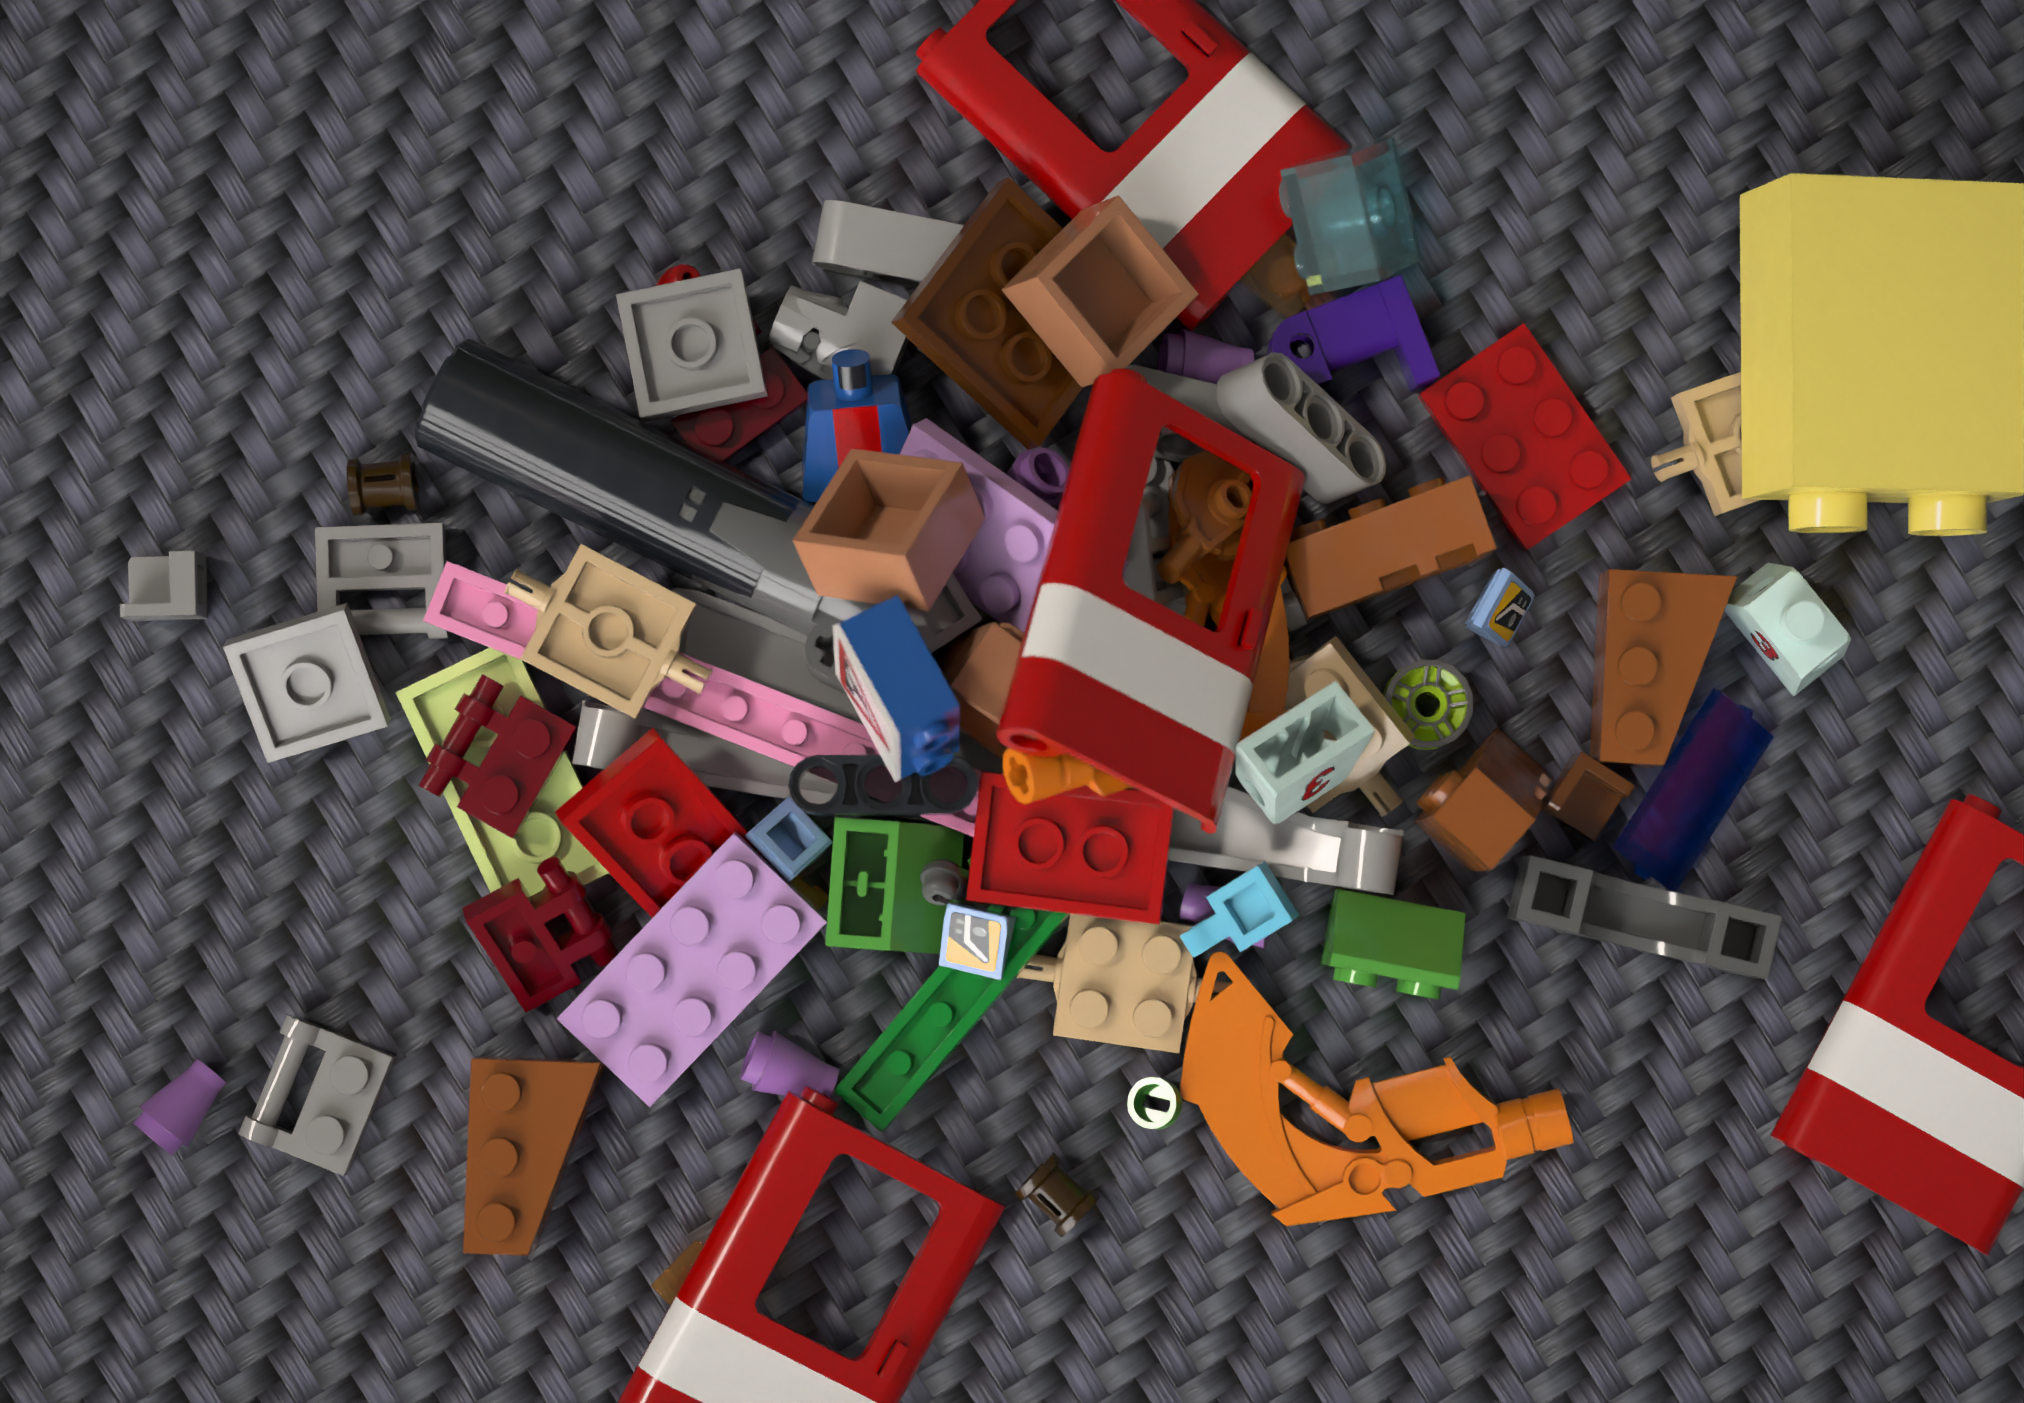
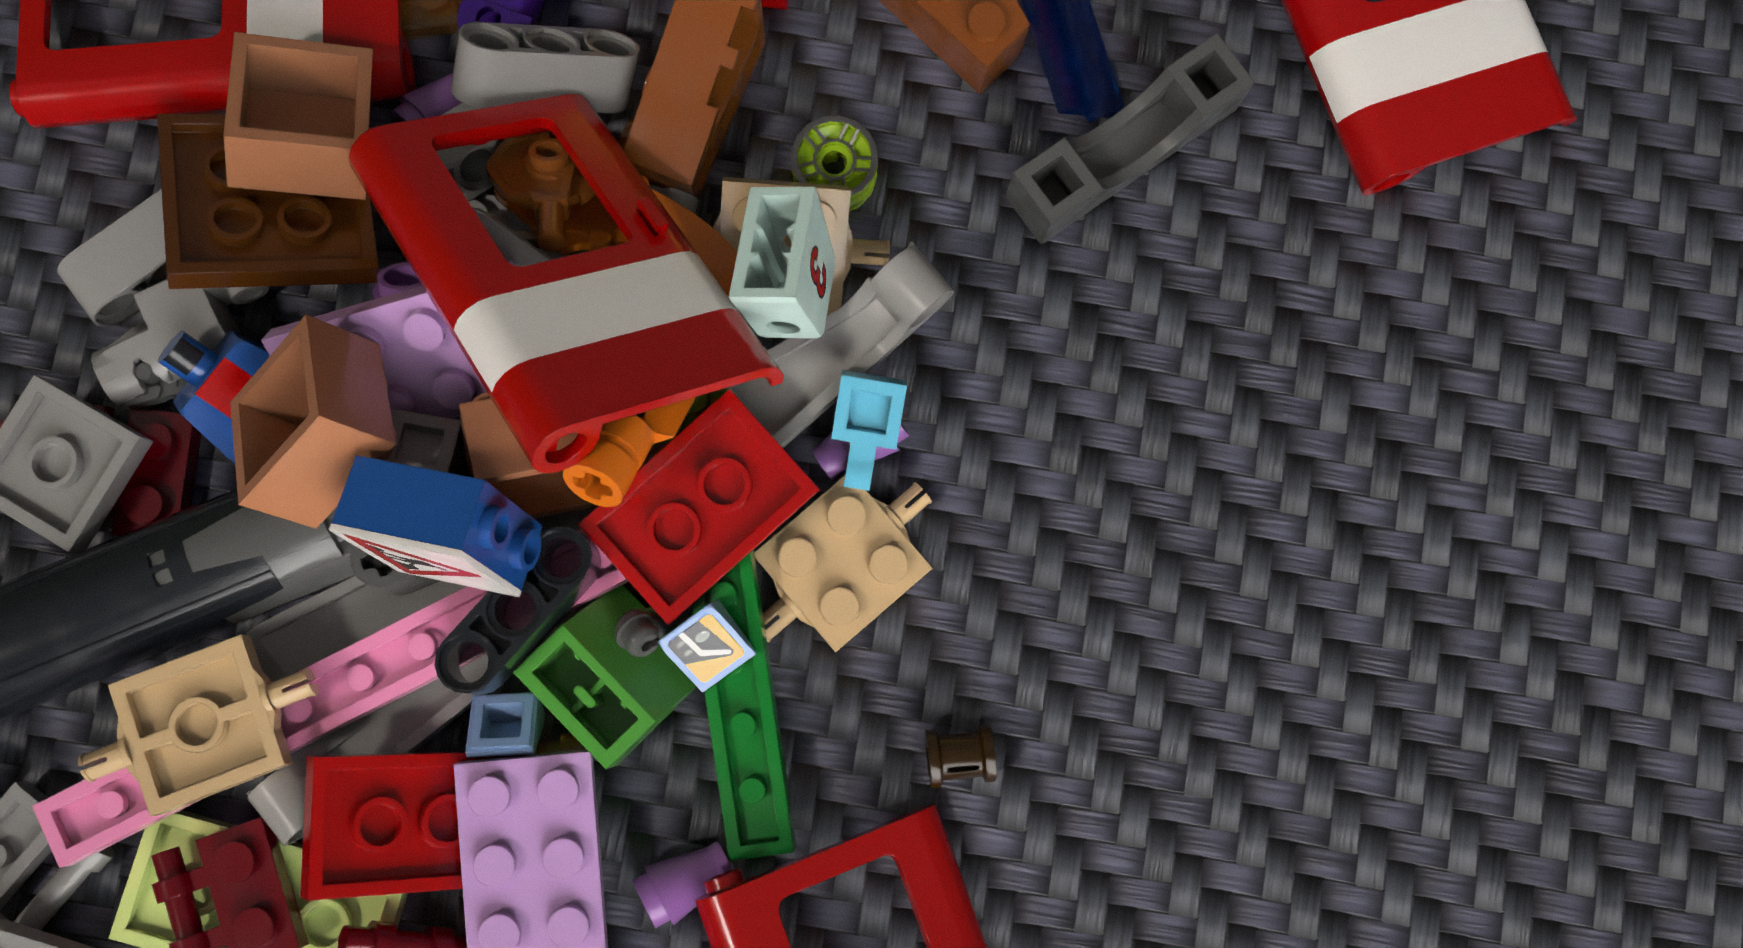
camera: 55 degrees left, 5 degrees down
(1150, 1117) = (948, 606): hinge -> none
(1234, 1076) = (985, 541): orange piece -> none
(1395, 941) = (988, 333): bright green slope -> none
(1484, 803) = (947, 184): dark orange wedge -> none
(1500, 608) = (810, 55): slope -> none
(1585, 795) = (1000, 107): reddish brown panel -> none

